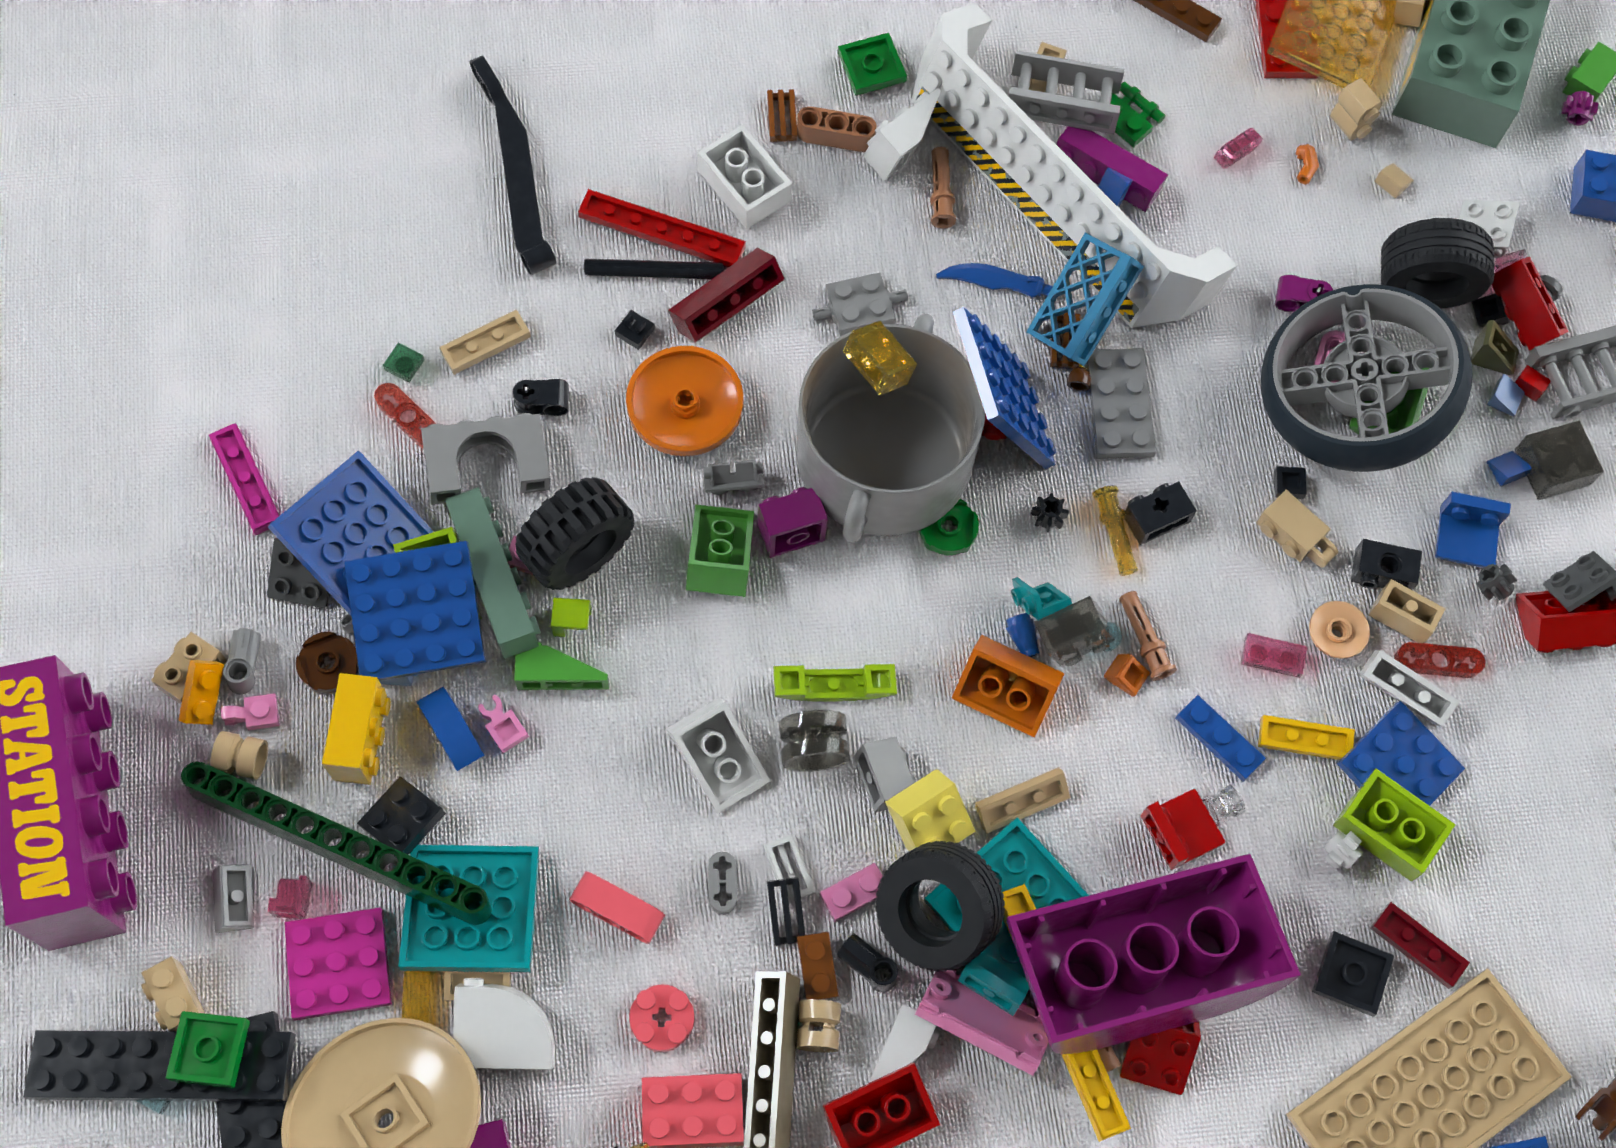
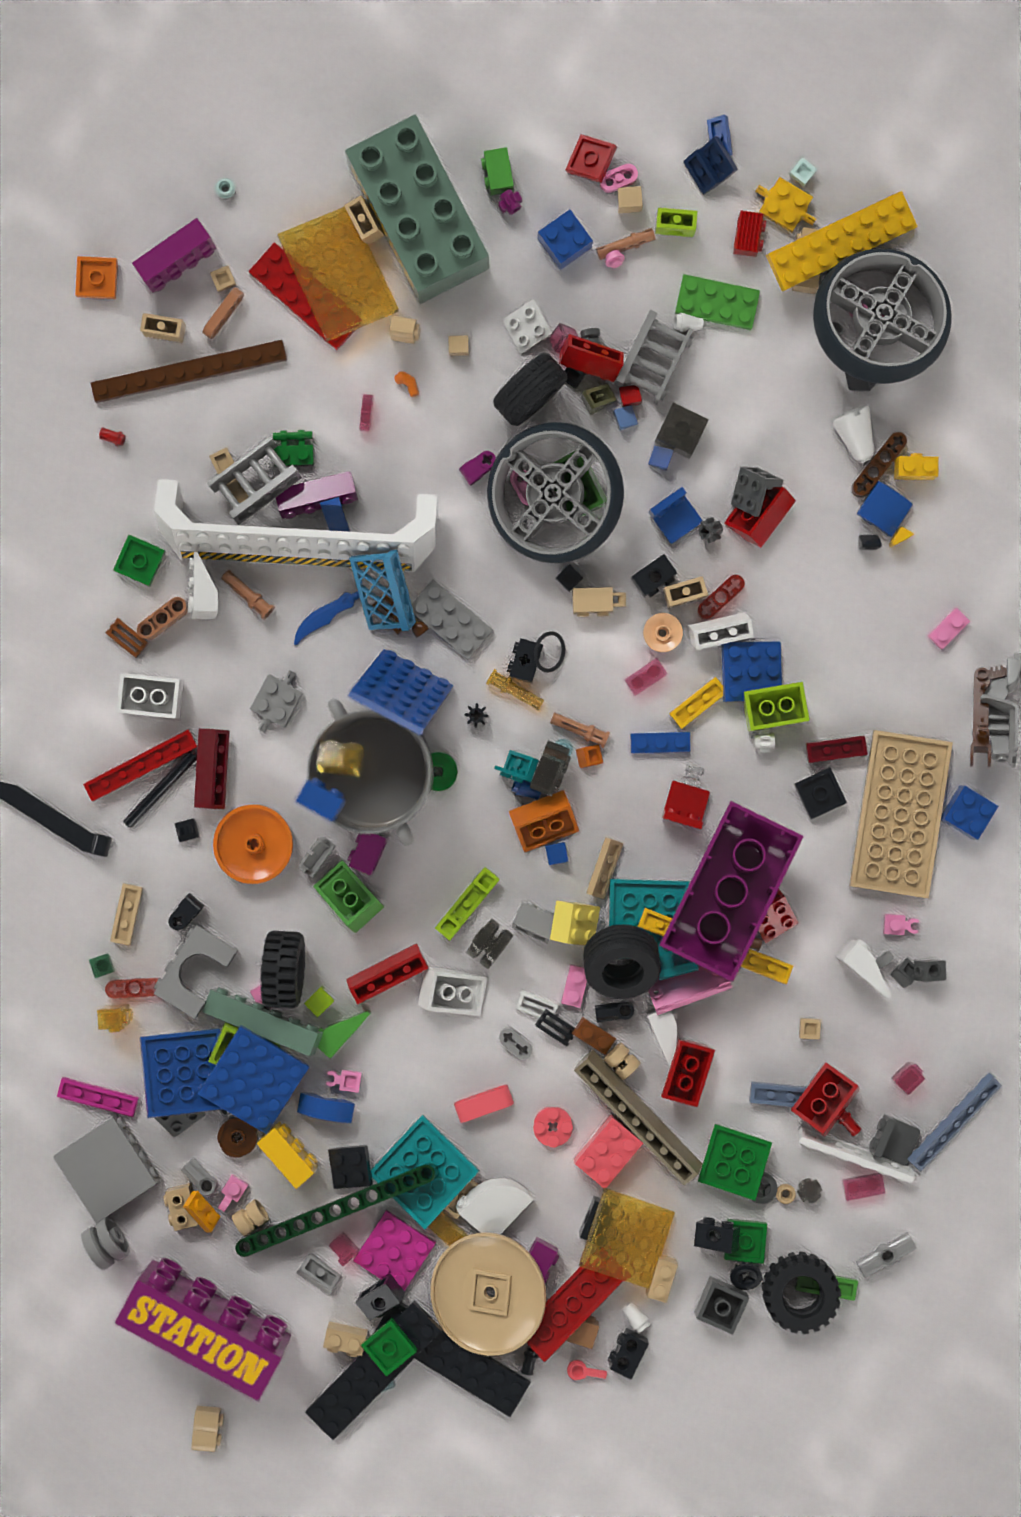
camera: 45 degrees left, 20 degrees up
(71, 615) = (105, 1243): none -> light grey wheel
(167, 549) = (107, 1168): none -> light grey panel
(281, 994) = (370, 1301): none -> black brick
(356, 414) = (114, 1017): none -> clear yellow brick
(671, 660) = (387, 973): none -> red brick
(815, 372) = (321, 800): none -> blue brick
(986, 734) = (556, 853): none -> blue slope
(1178, 509) = (536, 651): none -> black tyre

